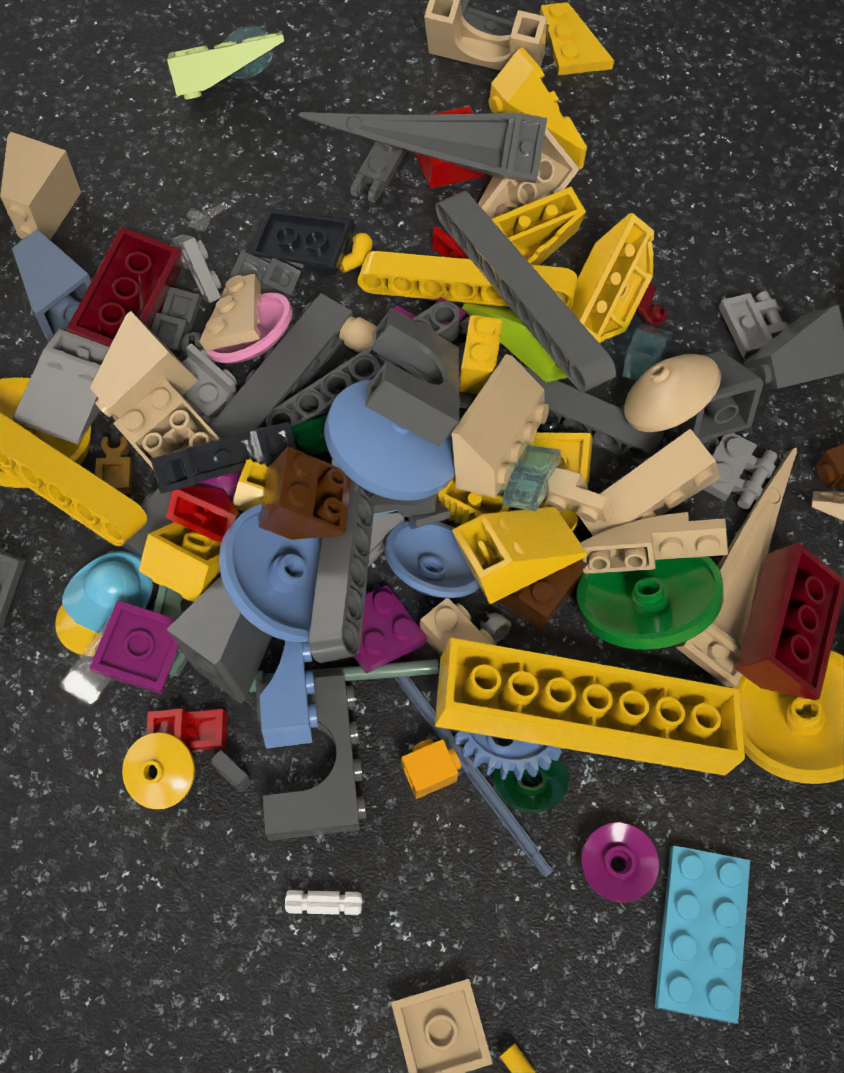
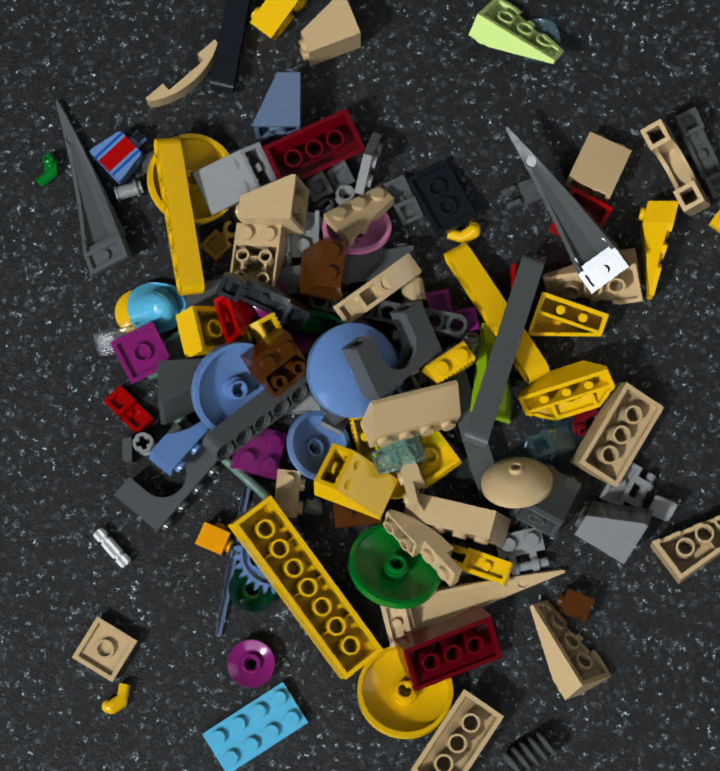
camera: 50 degrees right, 15 degrees up
(174, 769) = (107, 417): yellow dish -> none
(200, 315) = (343, 191): none -> light grey plate
(201, 220) = (402, 130): clear hand -> none
(239, 735) = (138, 440): none -> light grey bush
(258, 374) = (324, 270): none -> reddish brown slope
(330, 353) = (377, 289): none -> tan slope
(415, 90) = (598, 167): none -> tan brick
(696, 286) = (617, 434): none -> tan slope
(734, 505) = (484, 565): none -> yellow hinge
(804, 304) = (662, 507): none -> light grey slope

